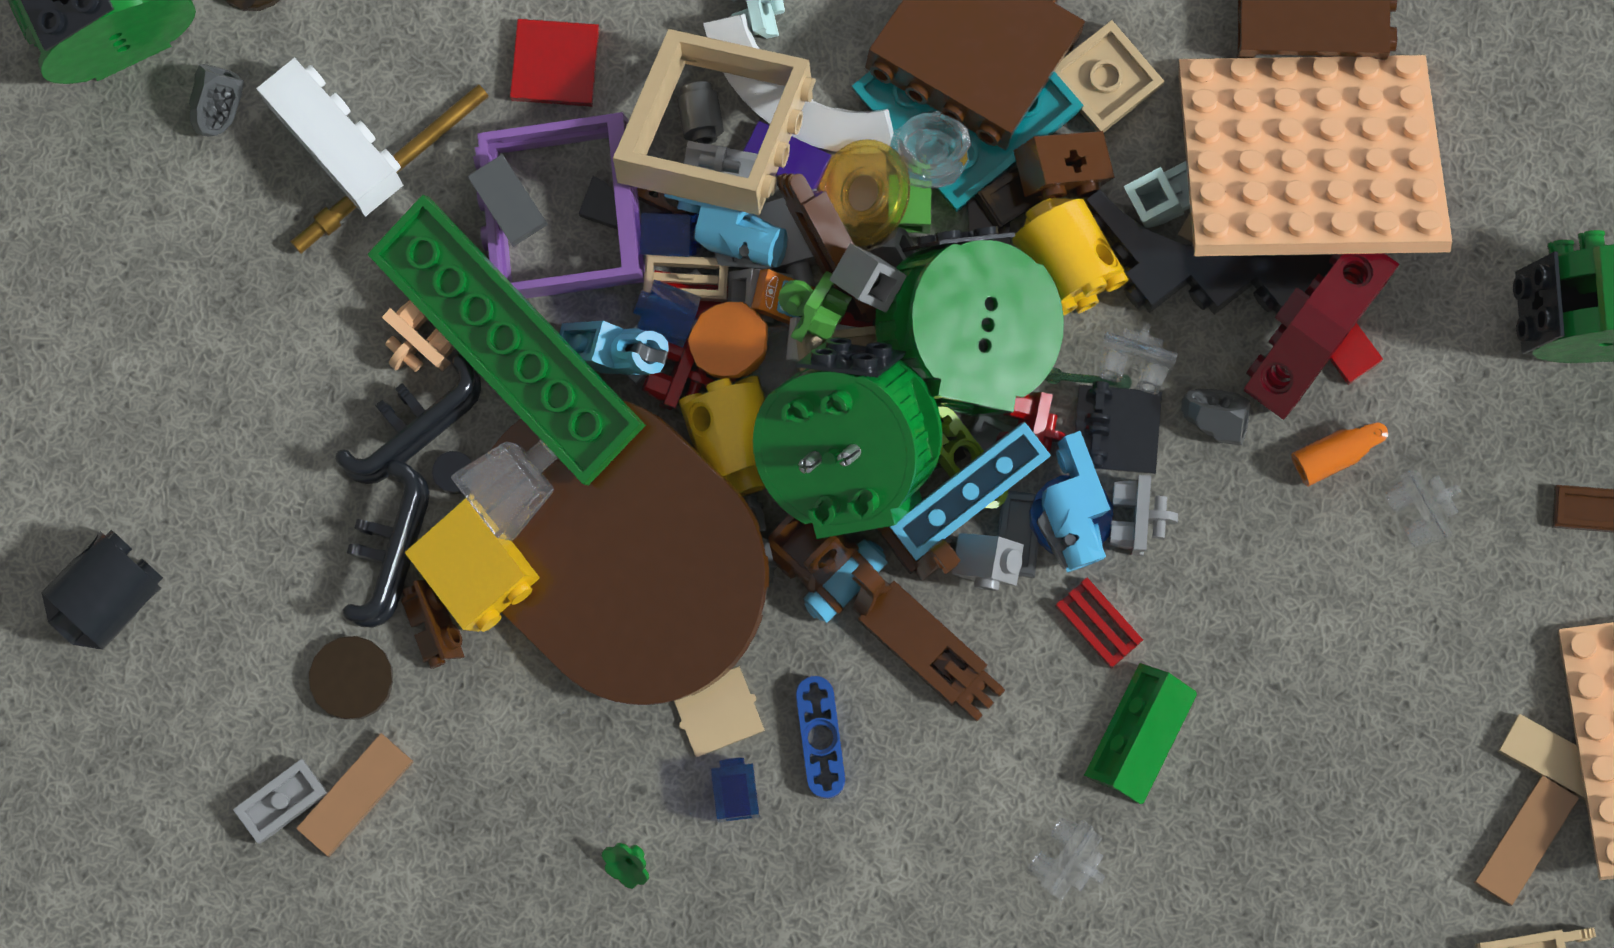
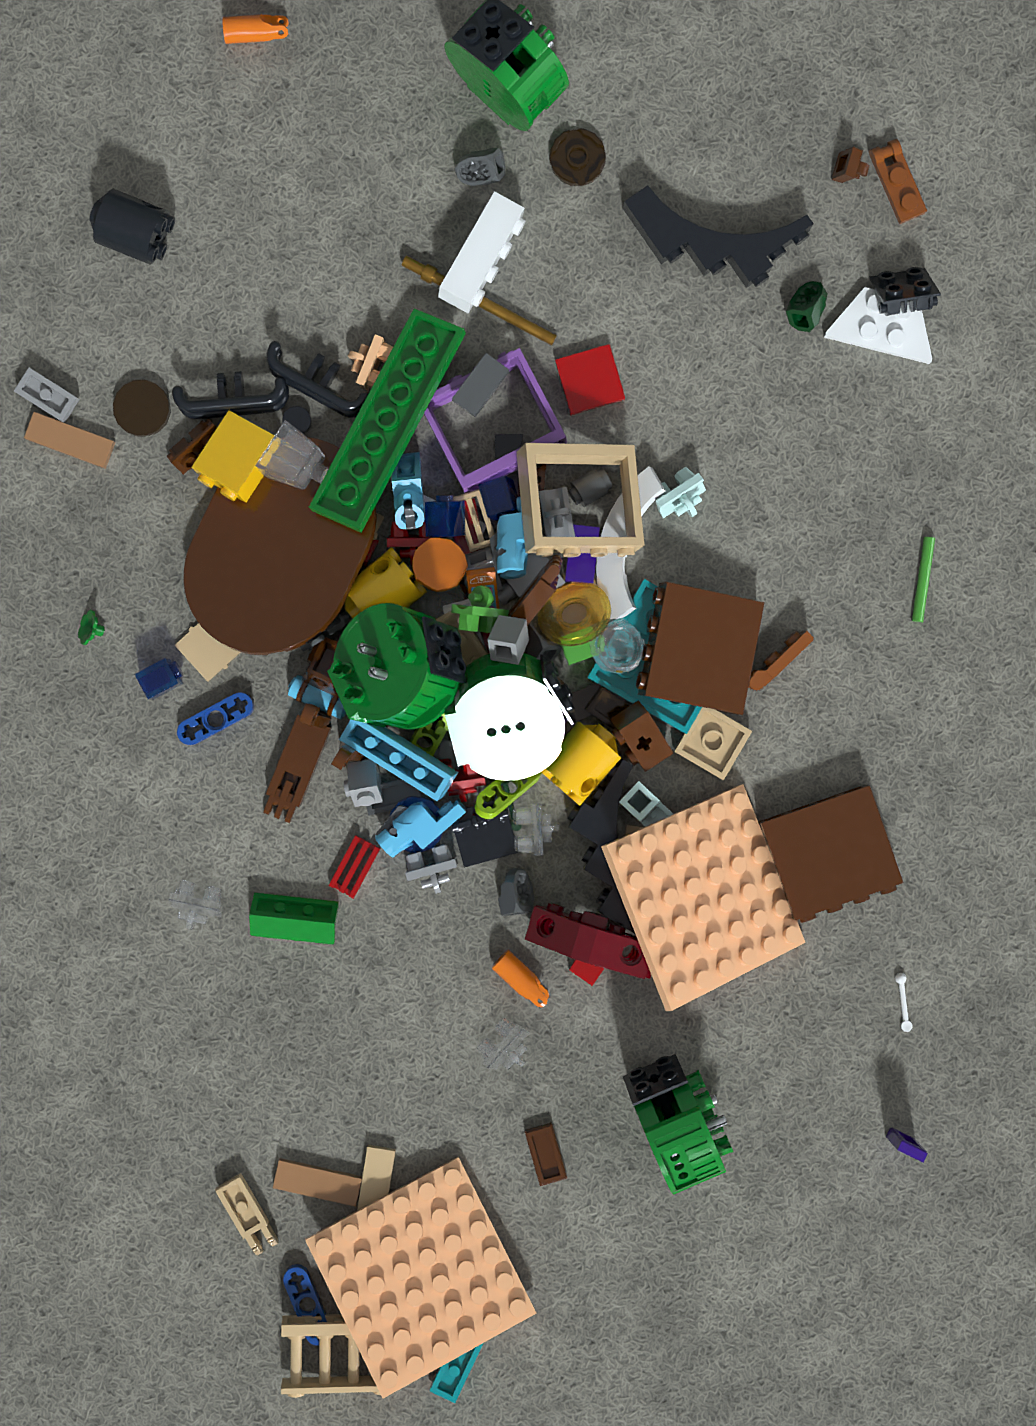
camera: 65 degrees right, 10 degrees up
(1079, 377) = (508, 798): none -> lime beam

